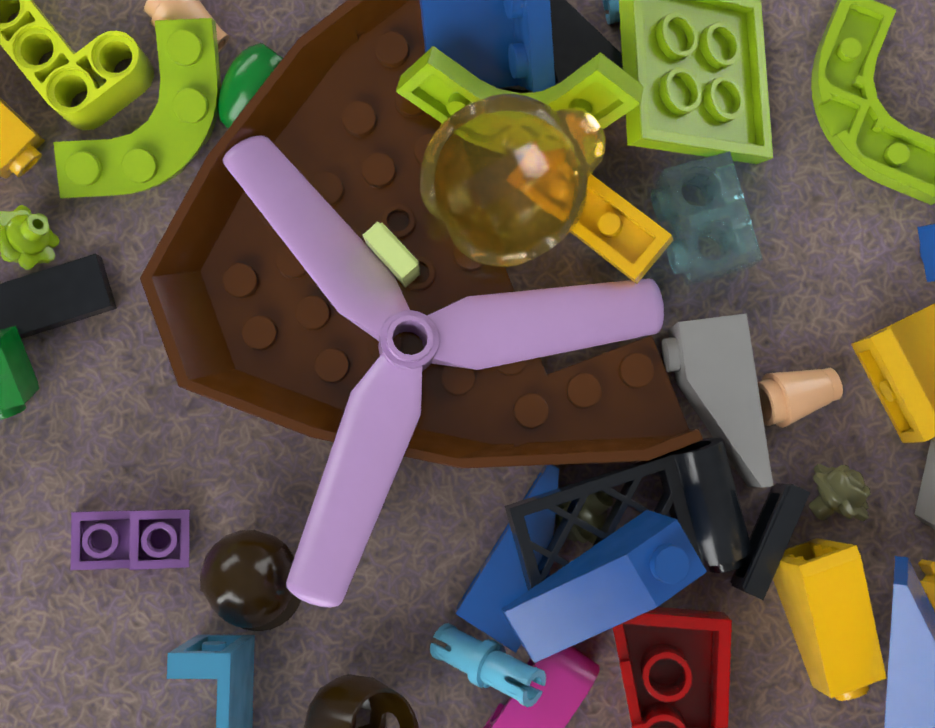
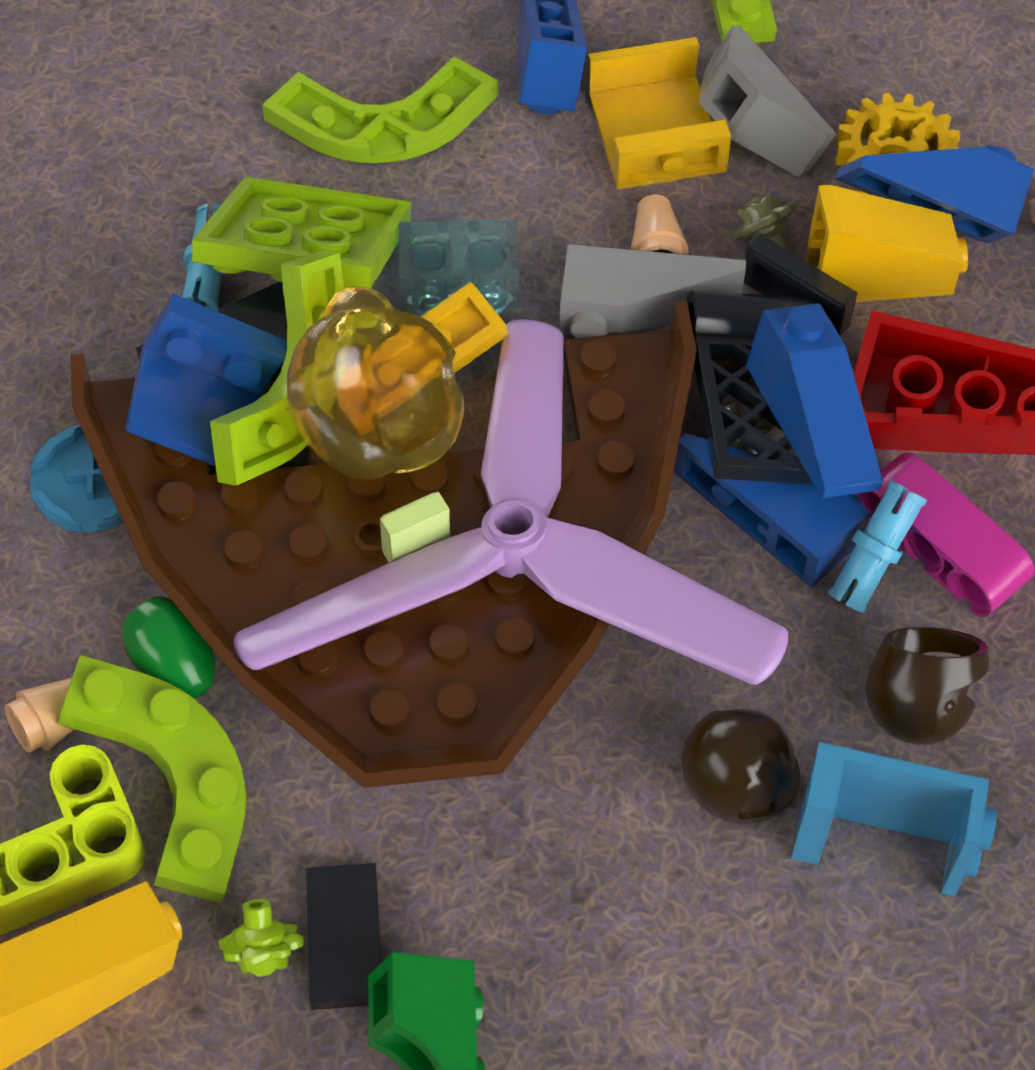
camera: 75 degrees left, 25 degrees down
(130, 539) = (662, 904): medium lavender slope -> none

